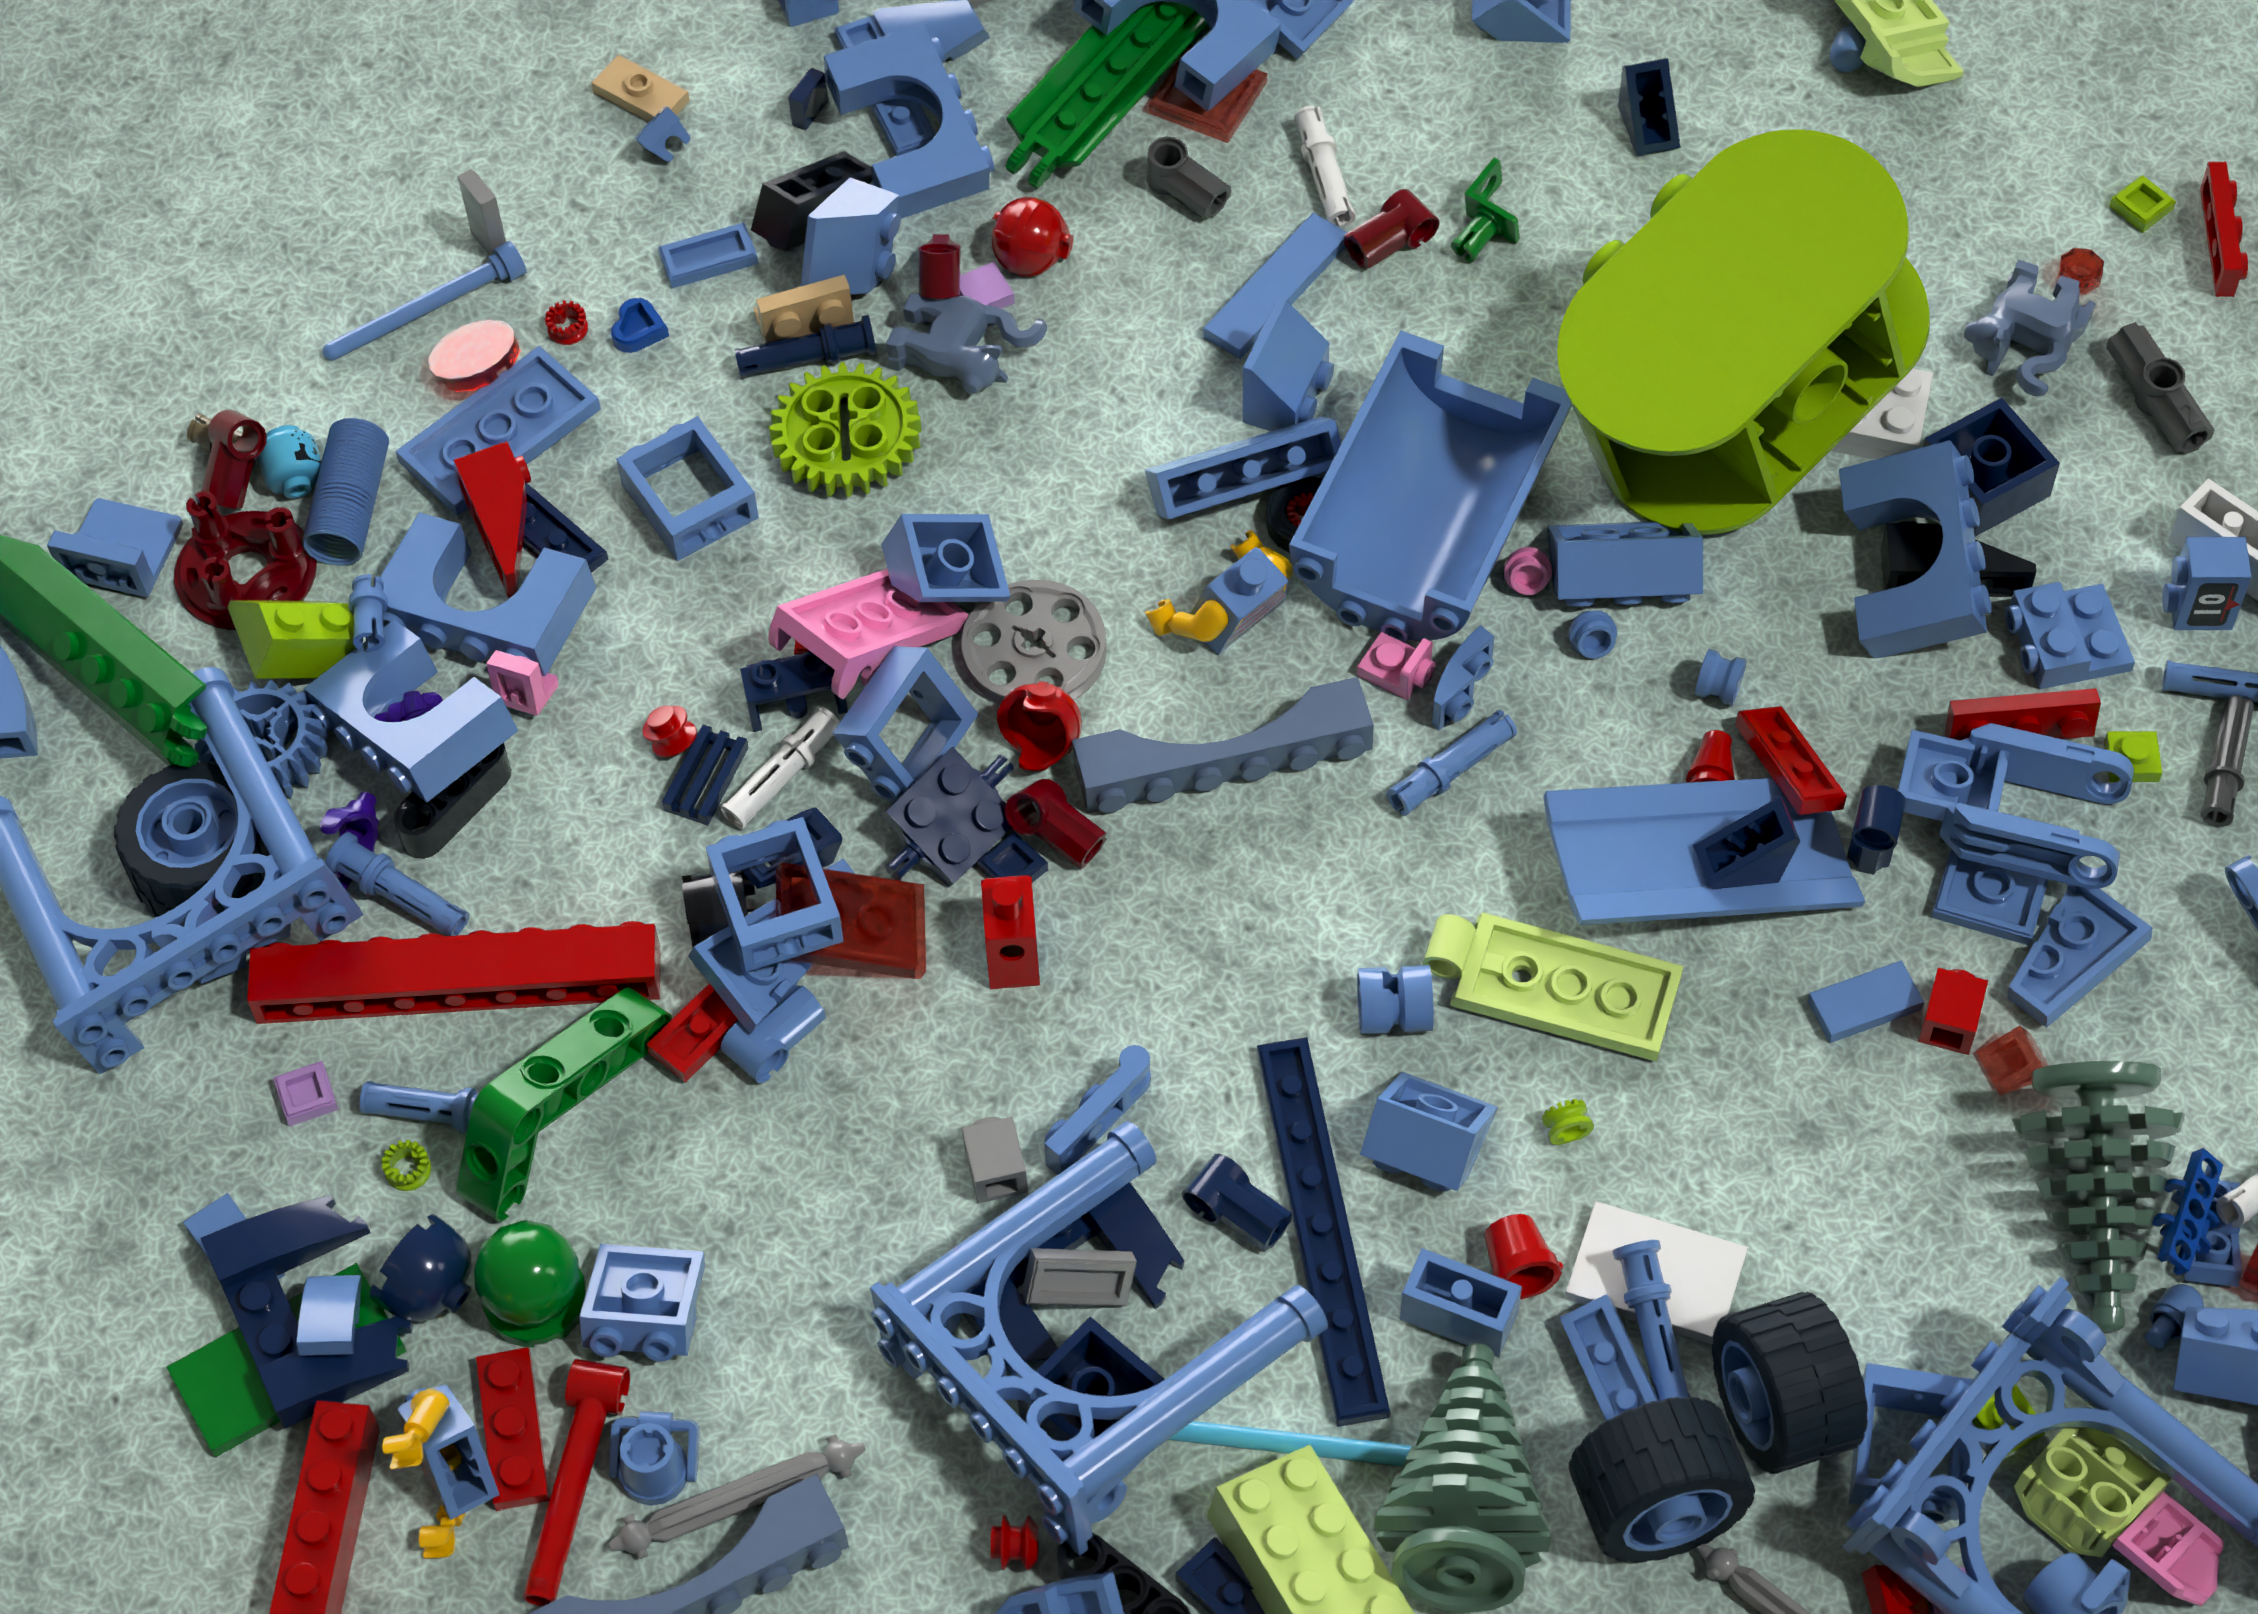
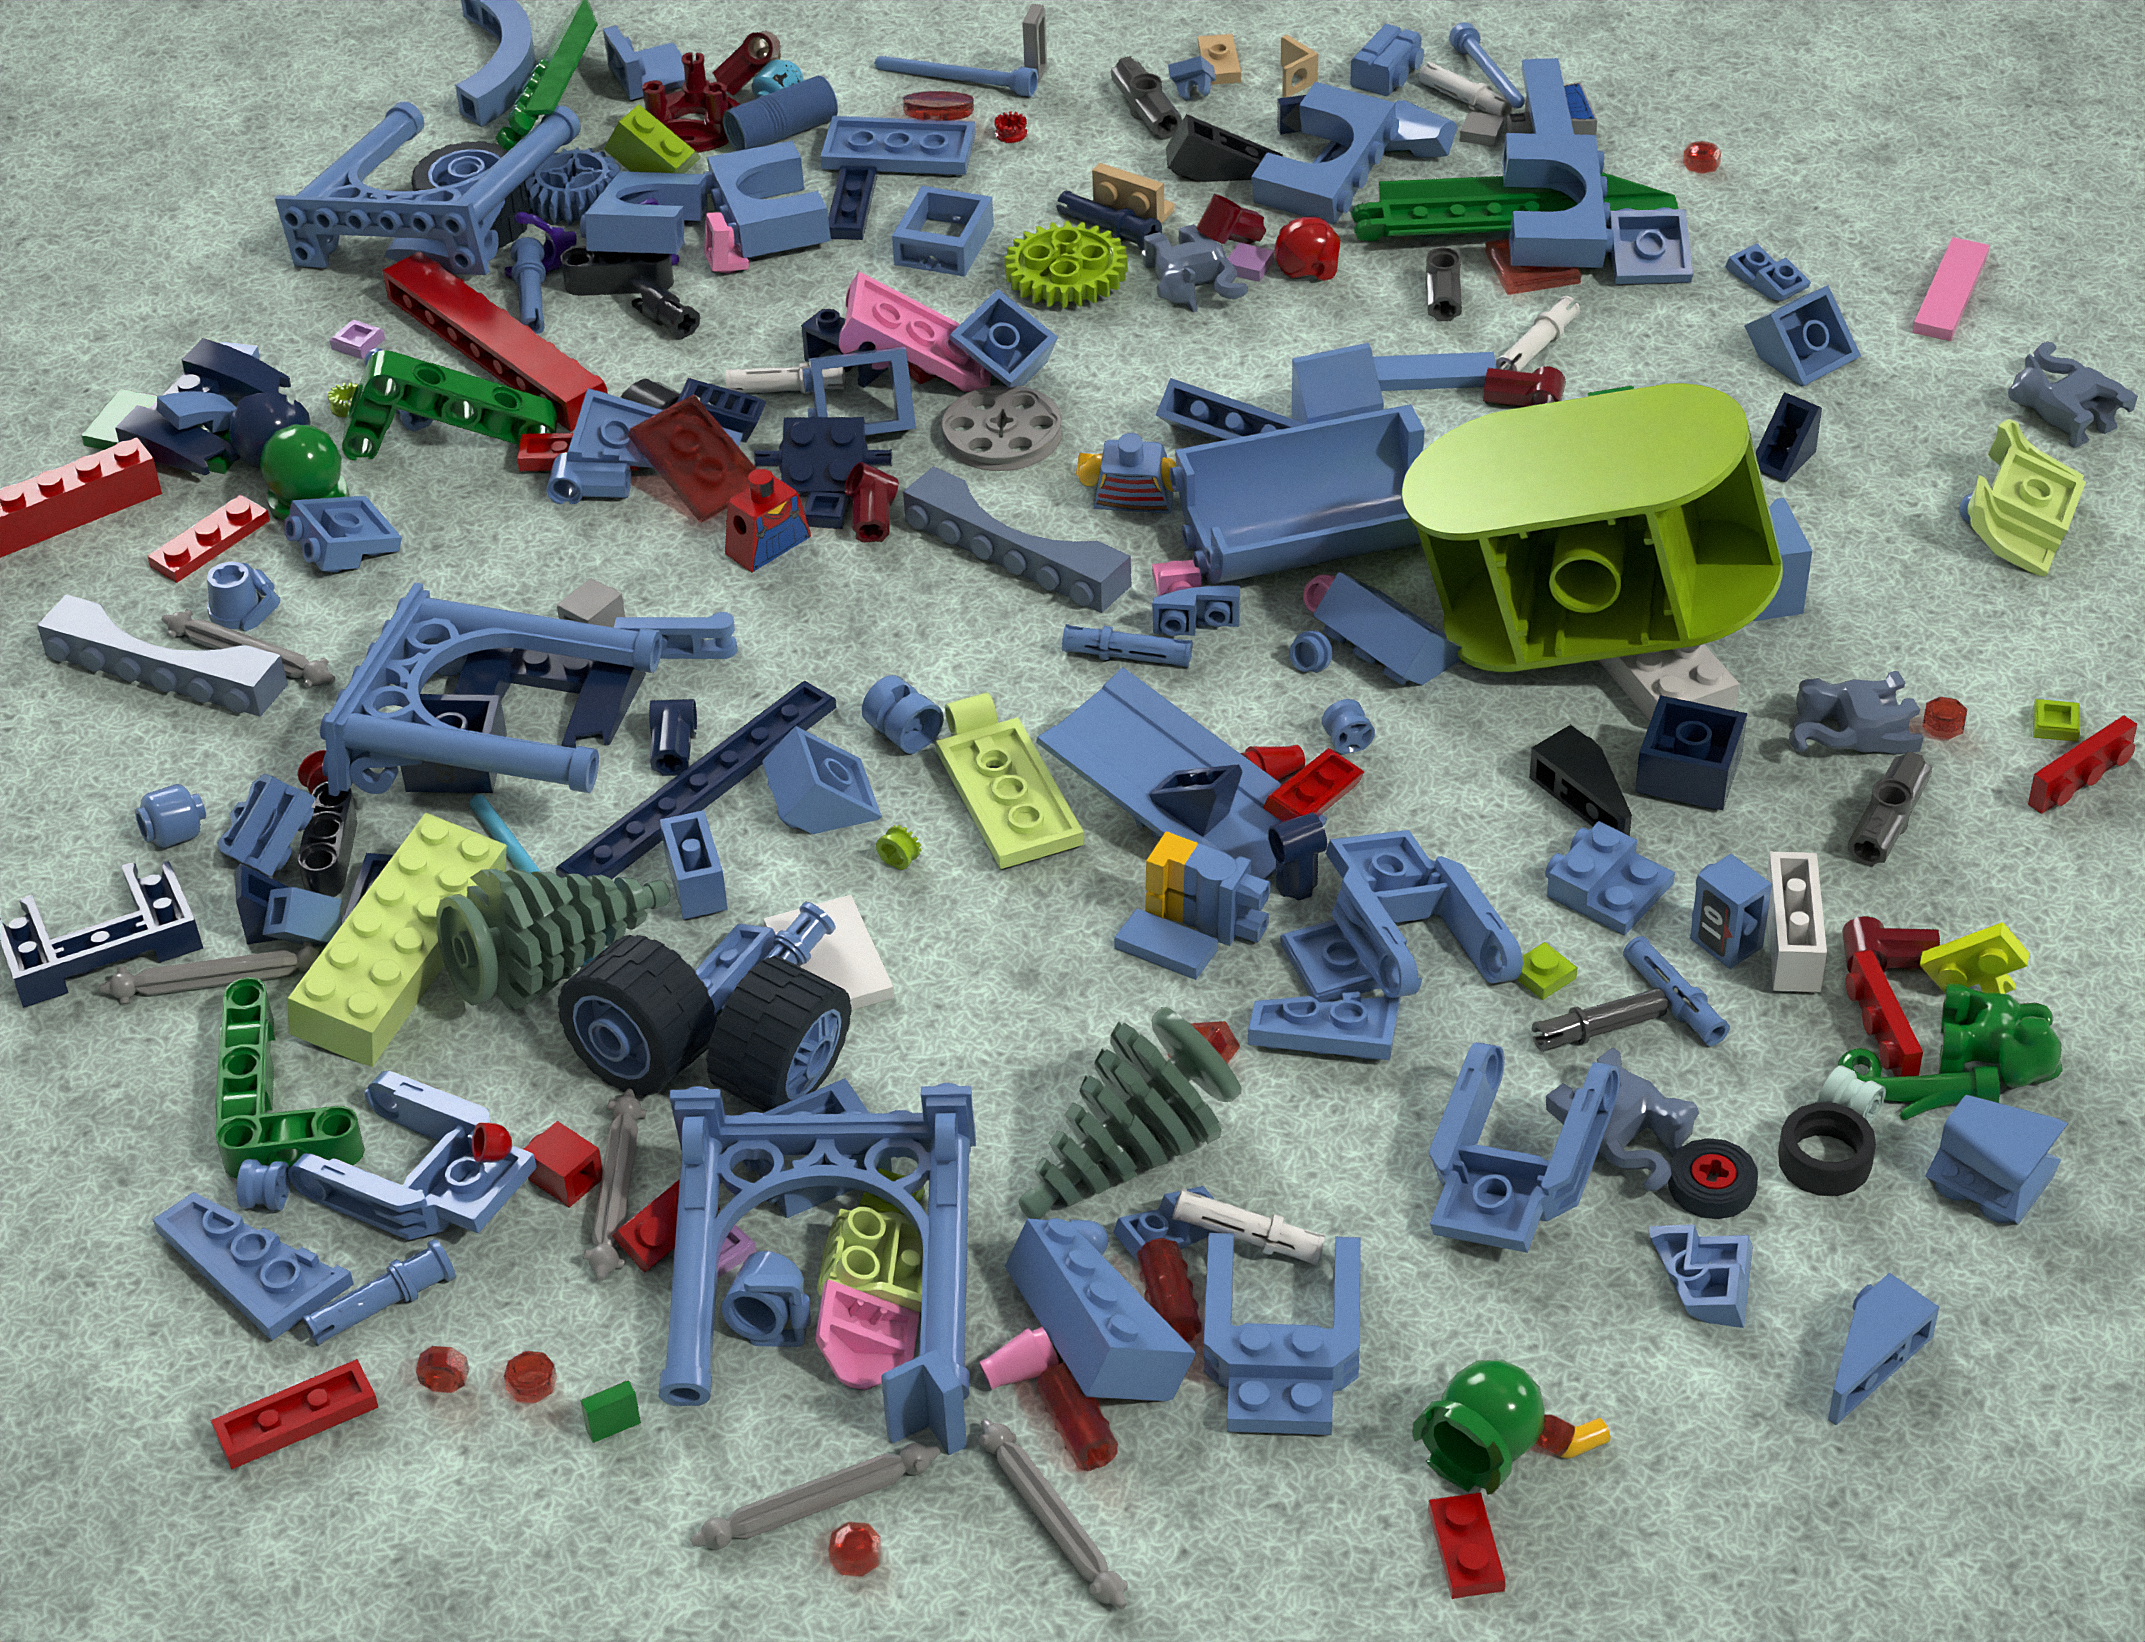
camera: 50 degrees right, 15 degrees down
(368, 607) = (694, 154): medium blue pin -> none
(451, 1456) = (151, 502): torso -> none
(497, 500) = (833, 162): red slope -> none
(552, 795) = (664, 307): none -> black piece
(593, 1392) = (259, 549): red piece -> none
(637, 326) = (1043, 154): blue tile -> none
(650, 189) = (1146, 97): none -> dark grey piece
(669, 730) = (759, 322): red wheel -> none
(708, 255) = (1130, 149): medium blue tile -> none
(719, 742) = (748, 354): dark blue tile -> none
(727, 36) = (1297, 60): none -> tan bracket
(787, 934) = (657, 423): medium blue window -> none
(852, 237) = (1193, 169): medium blue slope -> none
(1039, 724) = (936, 445): red cap -> none
(1078, 1277) = (536, 688): light grey tile -> none
(1522, 1255) = (762, 879): red piece -> none
(1859, 928) = (1206, 890): none -> medium blue hips
(1949, 597) = (1530, 782): medium blue arch -> none
(1953, 1010) = (1202, 983): red brick -> none
(2050, 714) = (1511, 895): red plate -> none
(2193, 1210) = (1163, 1182): blue piece -> none

